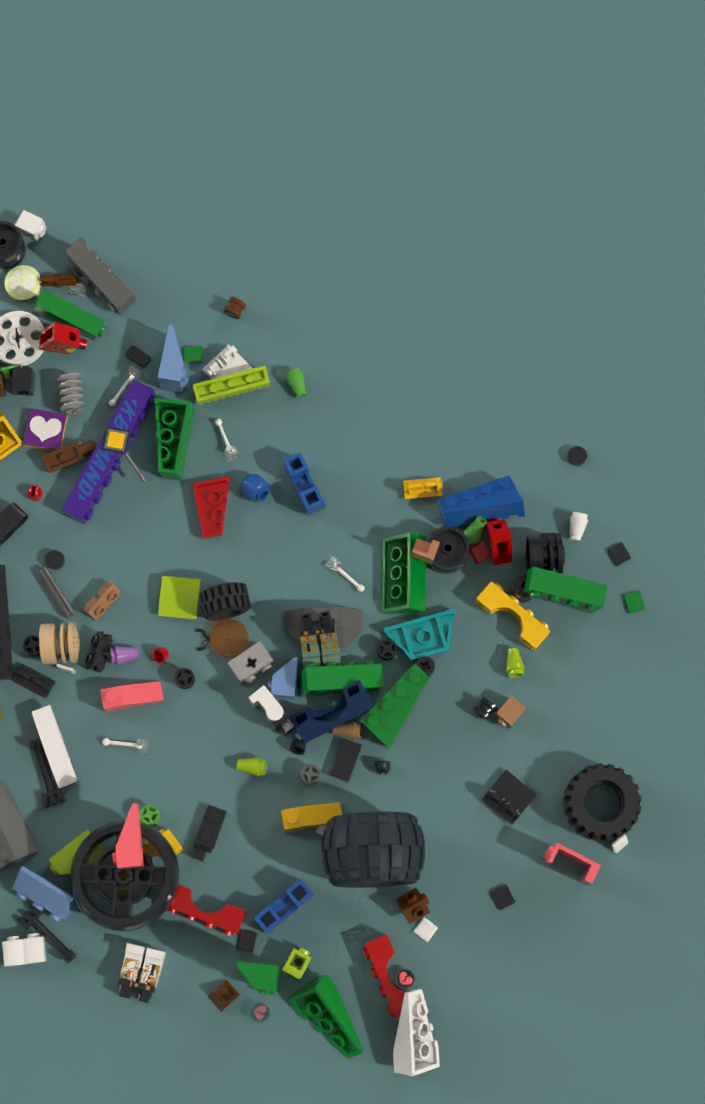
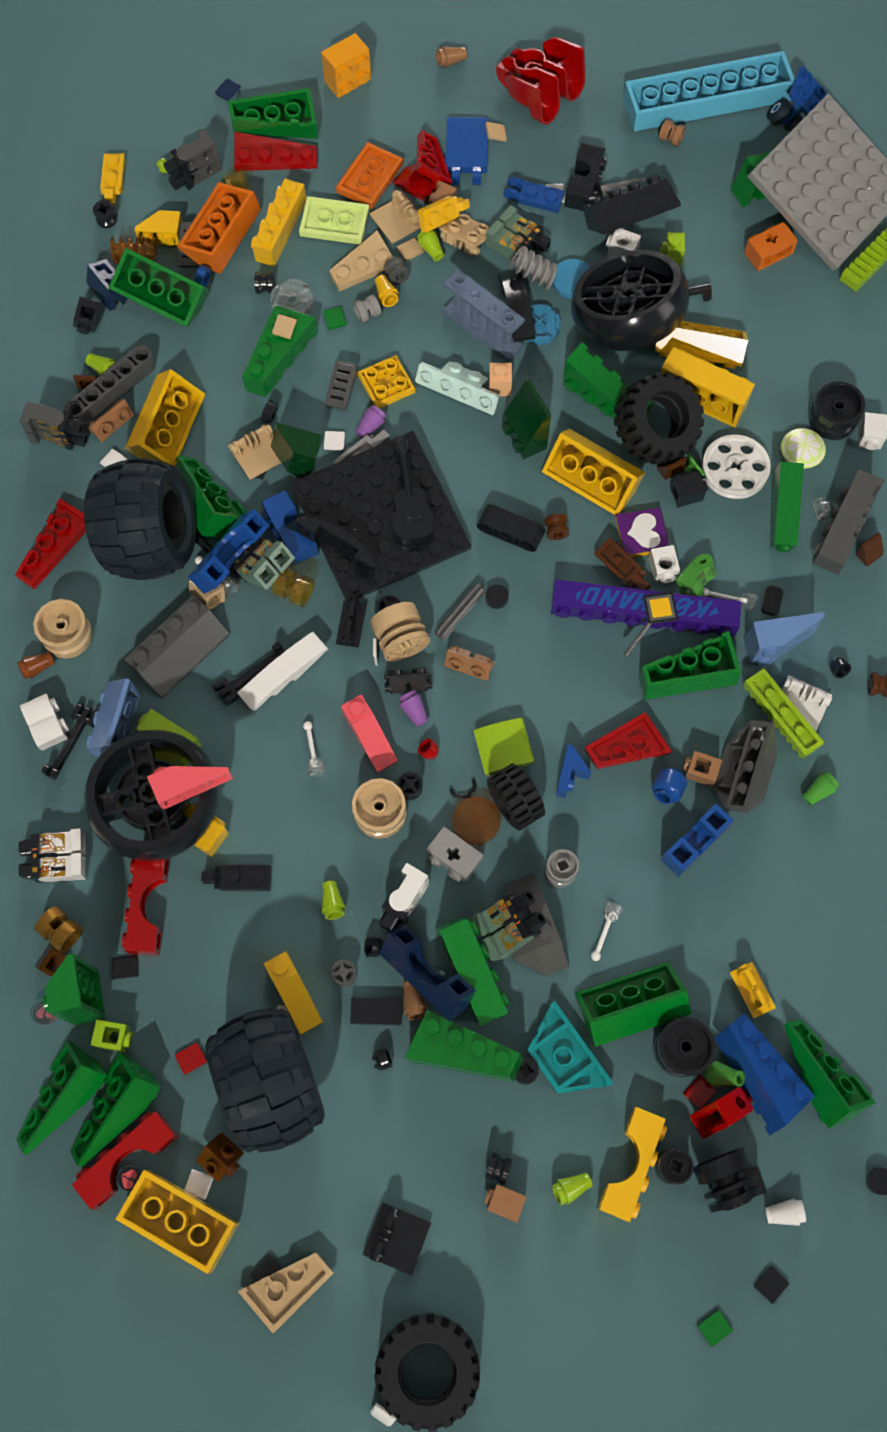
camera: 75 degrees right, 5 degrees down
(15, 492) = (556, 526): none -> reddish brown wheel
(38, 493) = (566, 551): red hinge -> none
(58, 280) = (823, 482): reddish brown axle -> none
(61, 339) = (754, 509): red torso -> none
(69, 394) = (696, 540): light grey piece -> none
(76, 417) = (667, 556): none -> white brick
(98, 403) = (696, 575): none -> bright green leg
(127, 269) = (871, 549): none -> reddish brown slope
(148, 812) = (235, 798): bright green wheel -> none
(191, 695) = (365, 806): none -> tan wheel
(193, 353) = (803, 659): green piece -> none
(207, 979) = (58, 929): none -> pearl gold wheel
(210, 330) = (844, 667): none -> black hinge
(213, 553) = (572, 766): none -> blue slope
(230, 453) = (702, 743): clear hinge -> none
(252, 452) = (709, 765): none -> medium nougat brick
(262, 428) = (747, 767): none -> dark grey wedge
(284, 681) = (447, 903): medium blue slope -> none
(284, 906) = (173, 995): blue arch -> none
(289, 588) = (561, 868): none -> light grey wheel
(333, 909) = (190, 1058): none -> red piece
(349, 972) = (123, 1099): none -> green wedge
(389, 647) = (531, 1011): black wheel -> none
(414, 1045) = (51, 1216): white wedge -> none
(424, 550) = (670, 1017): nougat panel -> none
(447, 948) = (177, 1221): none -> yellow brick
(510, 460) = (836, 1093): none -> green wedge
(519, 886) = (286, 1290): none -> tan wing
(565, 590) = (690, 1224): green wedge -> none
(591, 866) = (328, 1384): coral panel -> none

